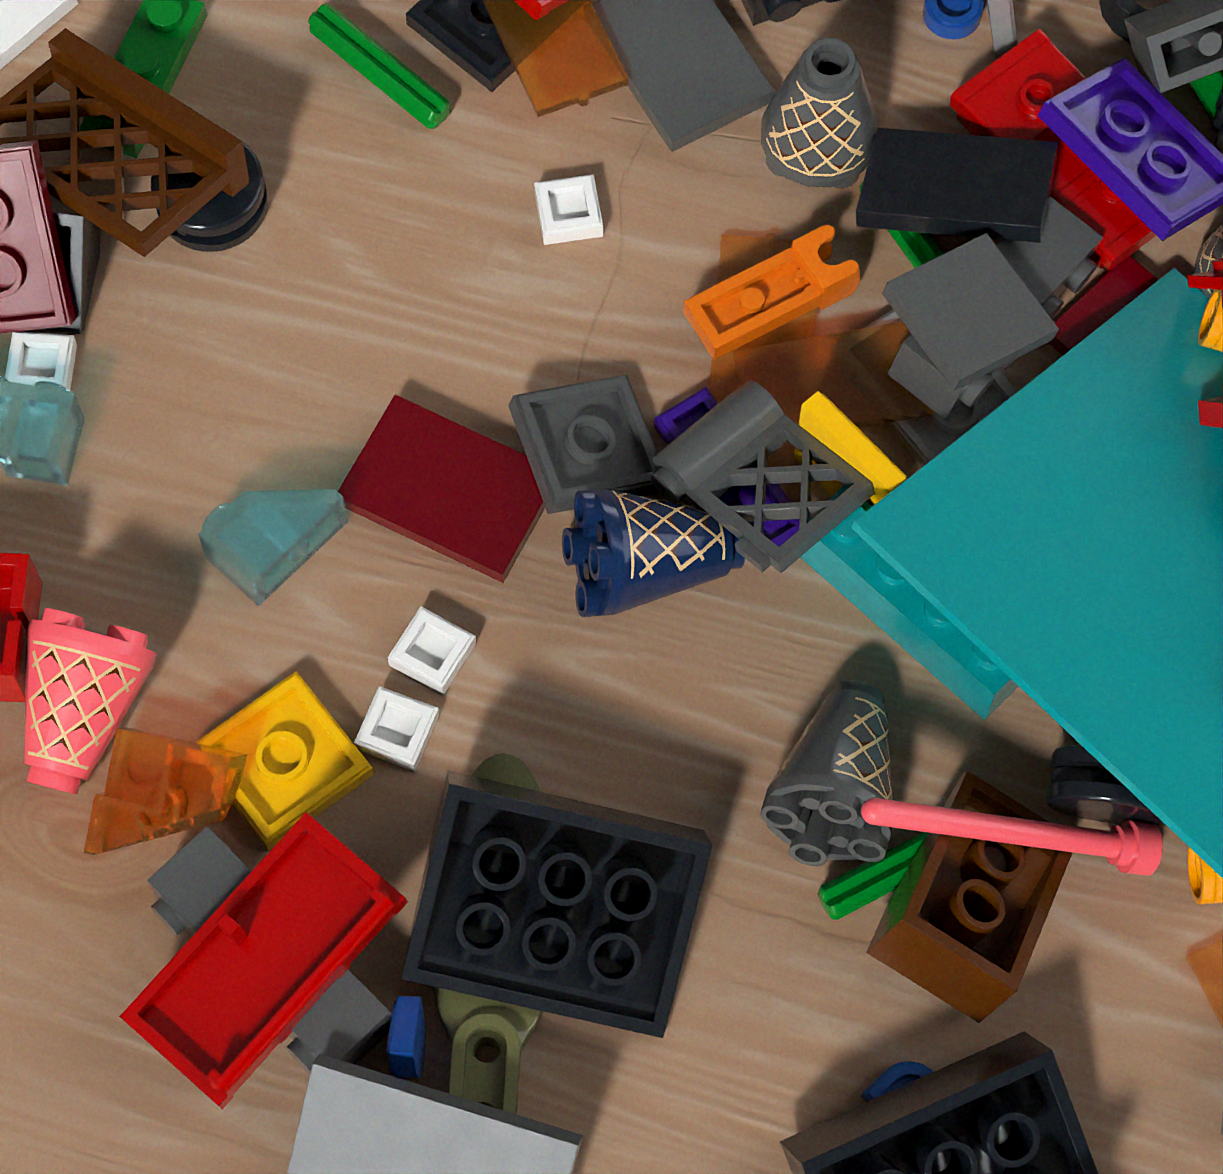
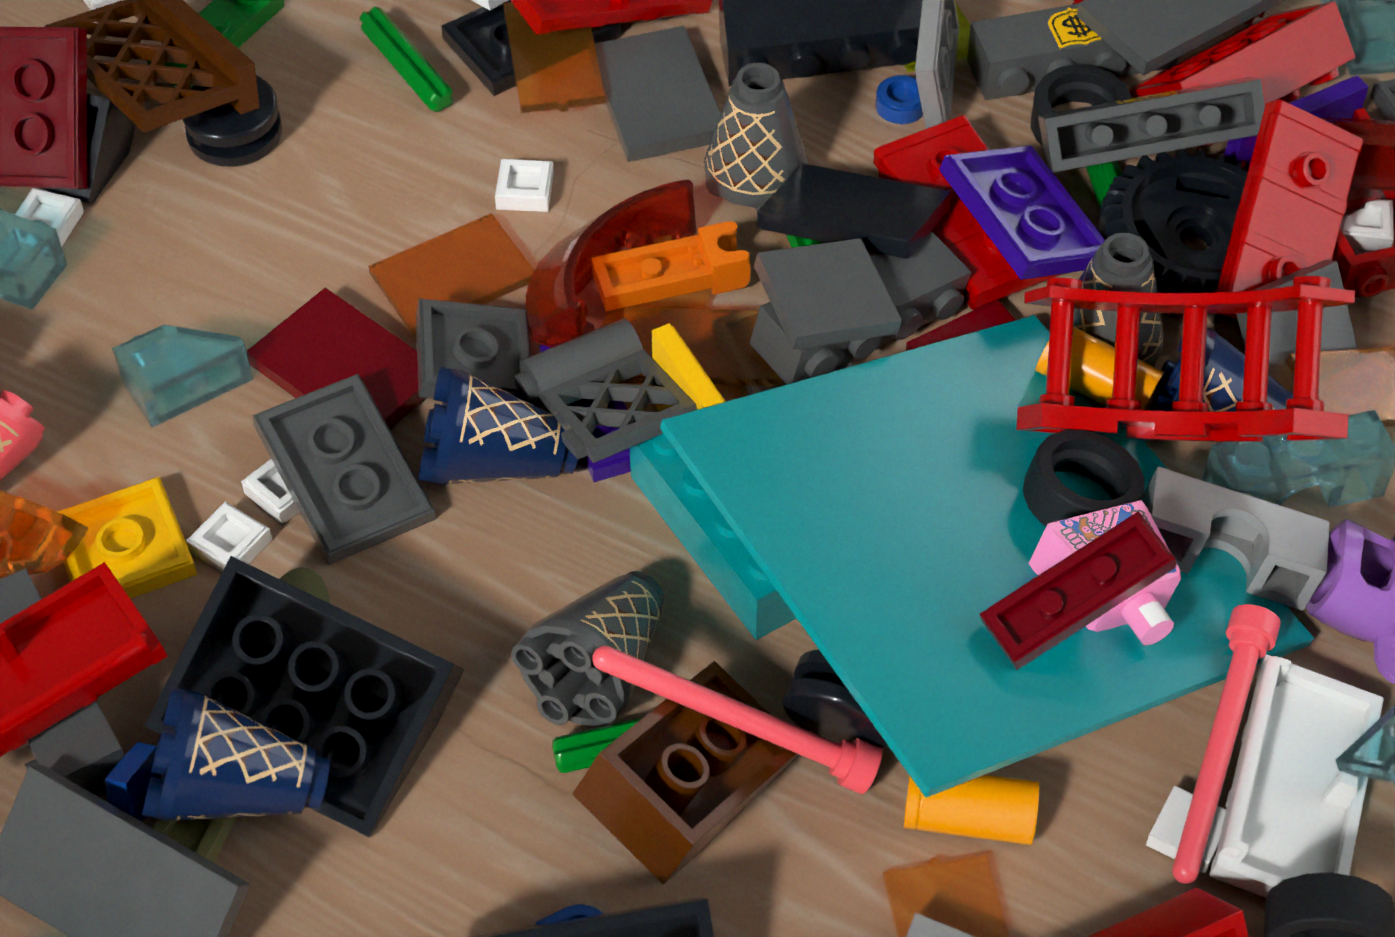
camera: 15 degrees right, 15 degrees down
(495, 619) = (343, 468): none -> dark grey tile
(513, 1012) = (228, 765): none -> dark blue cone
(524, 339) = (459, 266): none -> clear orange piece
(652, 315) = (551, 294): none -> clear red windscreen

